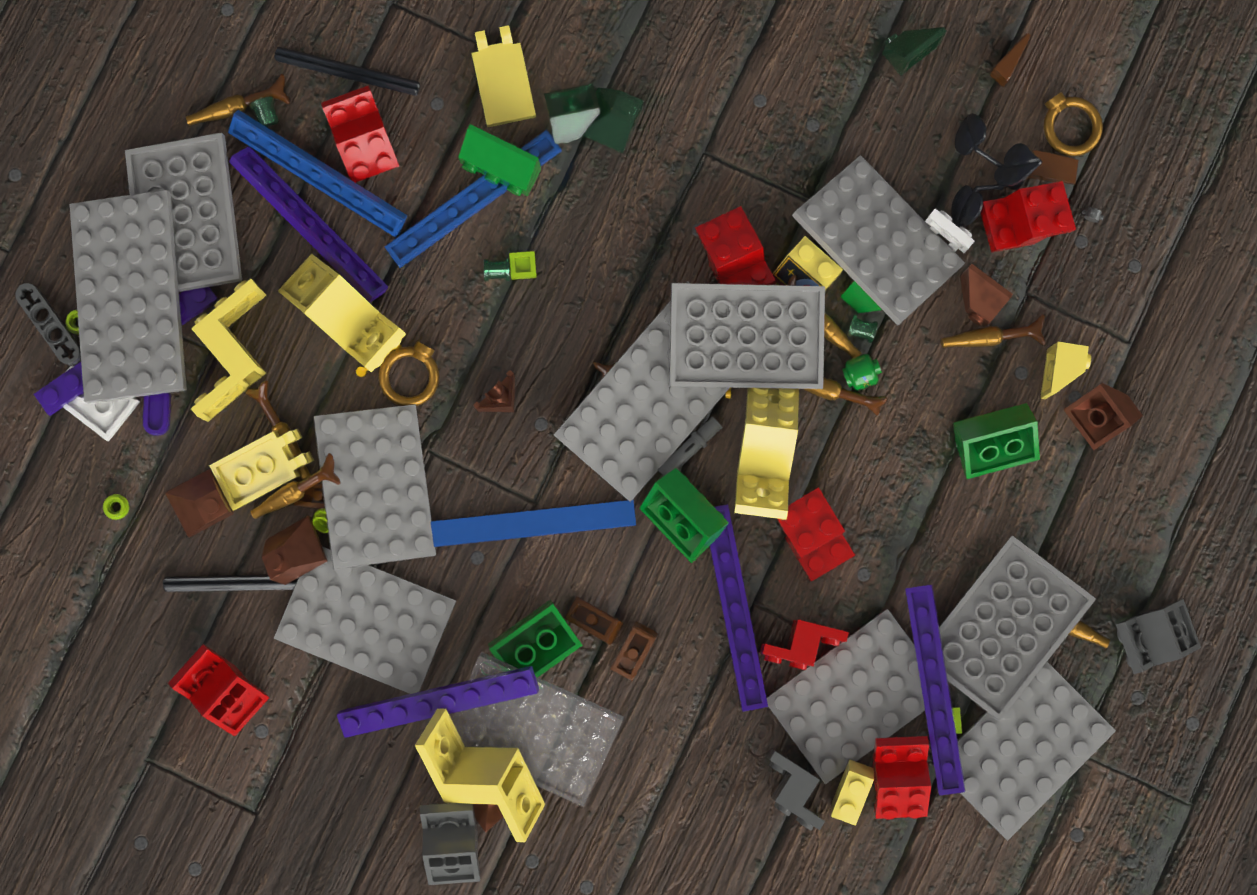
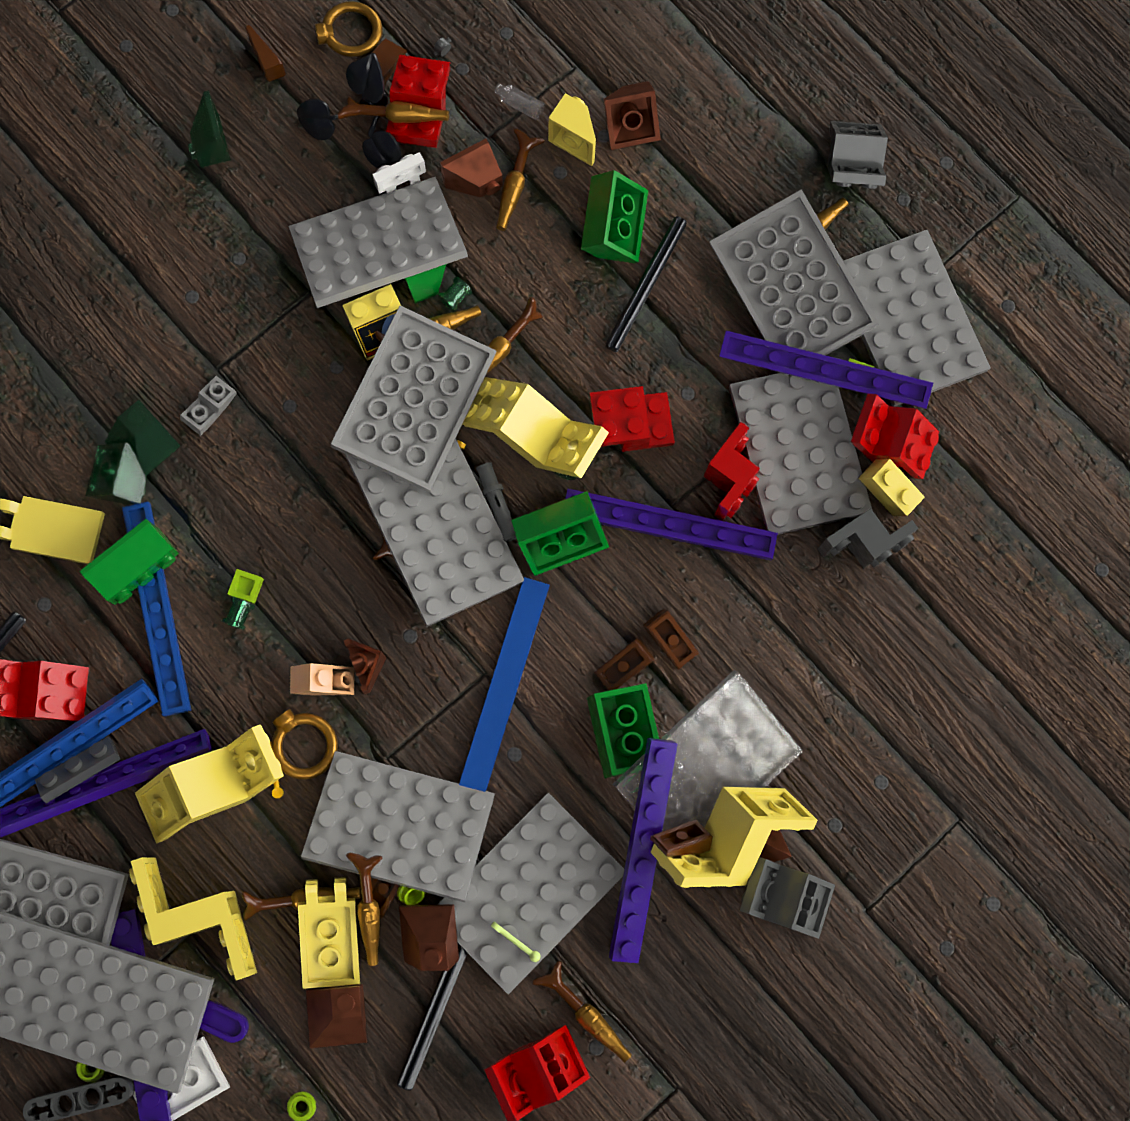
camera: 70 degrees left, 5 degrees down
(284, 710) = (585, 1014): none -> pearl gold piece
(310, 197) = (77, 769): none -> dark grey plate
(313, 647) = (533, 955): none -> yellowish green hinge
(459, 732) = (683, 840): none -> reddish brown slope
(470, 366) = (321, 680): none -> light nougat slope
(667, 161) = (208, 407): none -> light grey slope
(734, 250) = (324, 376): red bracket -> none
(862, 372) = (496, 311): green head -> none
(949, 494) = (646, 284): none -> black axle
(1005, 201) = (395, 111): none -> pearl gold piece
(1072, 308) = (520, 101): none -> clear cylinder

